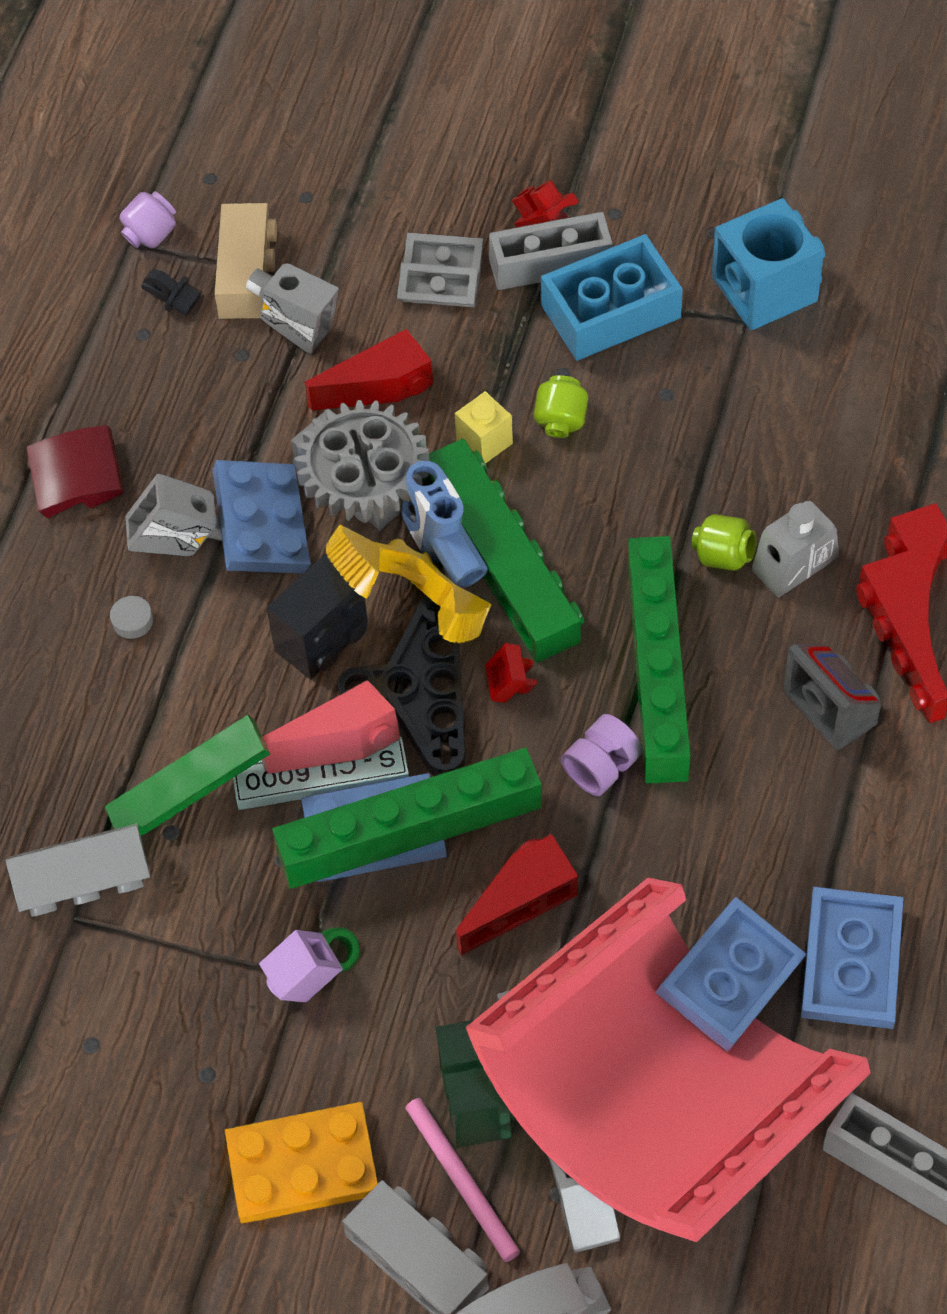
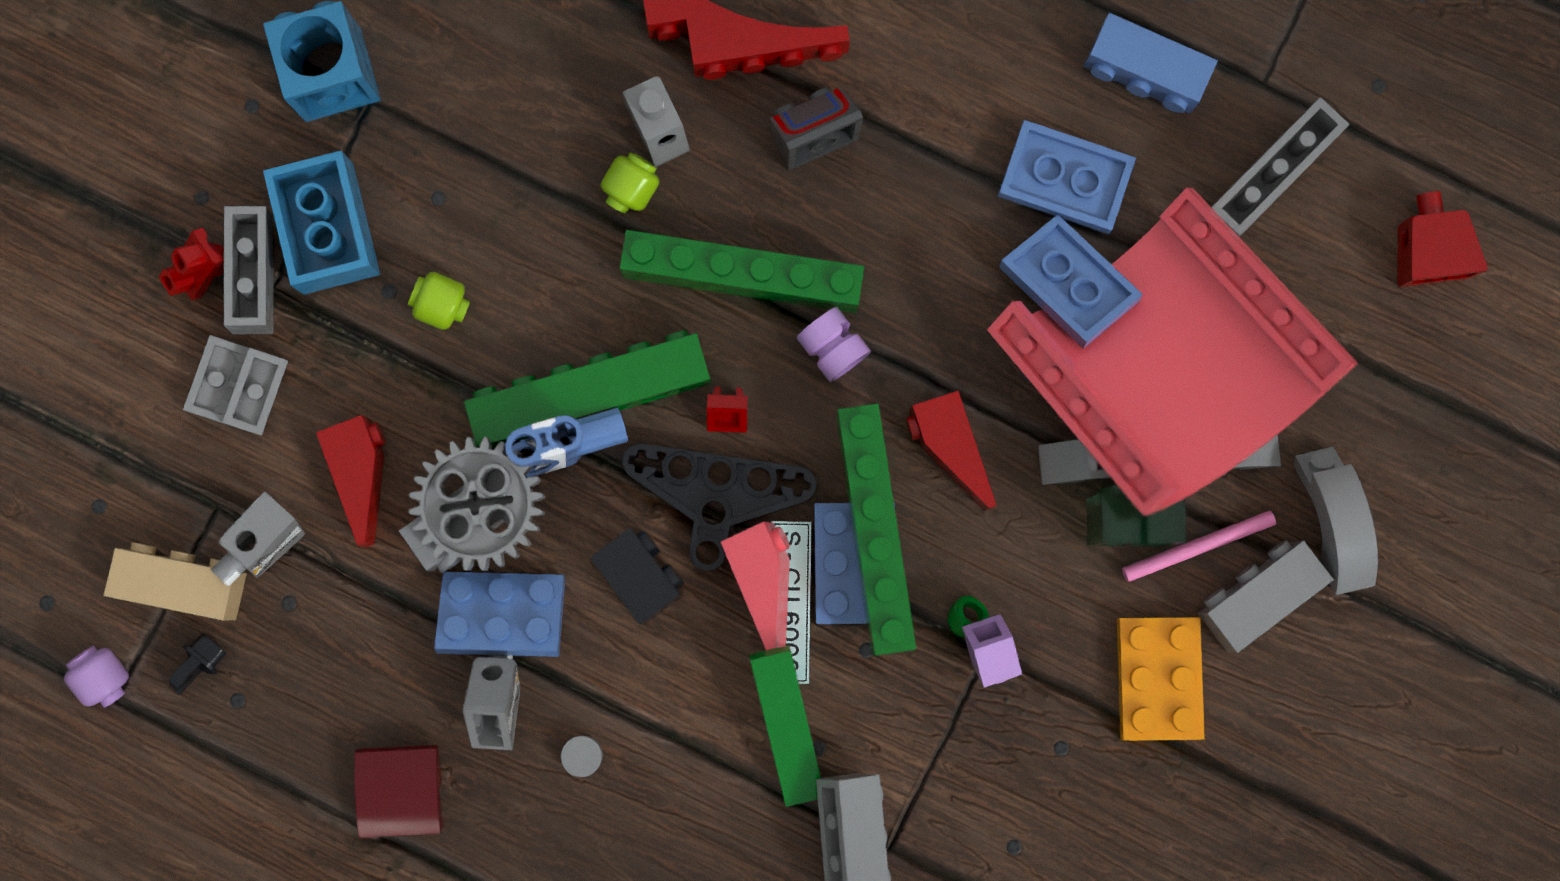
camera: 85 degrees left, 25 degrees up
(361, 559) = (616, 529): yellow piece -> none
(484, 426) = (447, 379): light yellow brick -> none

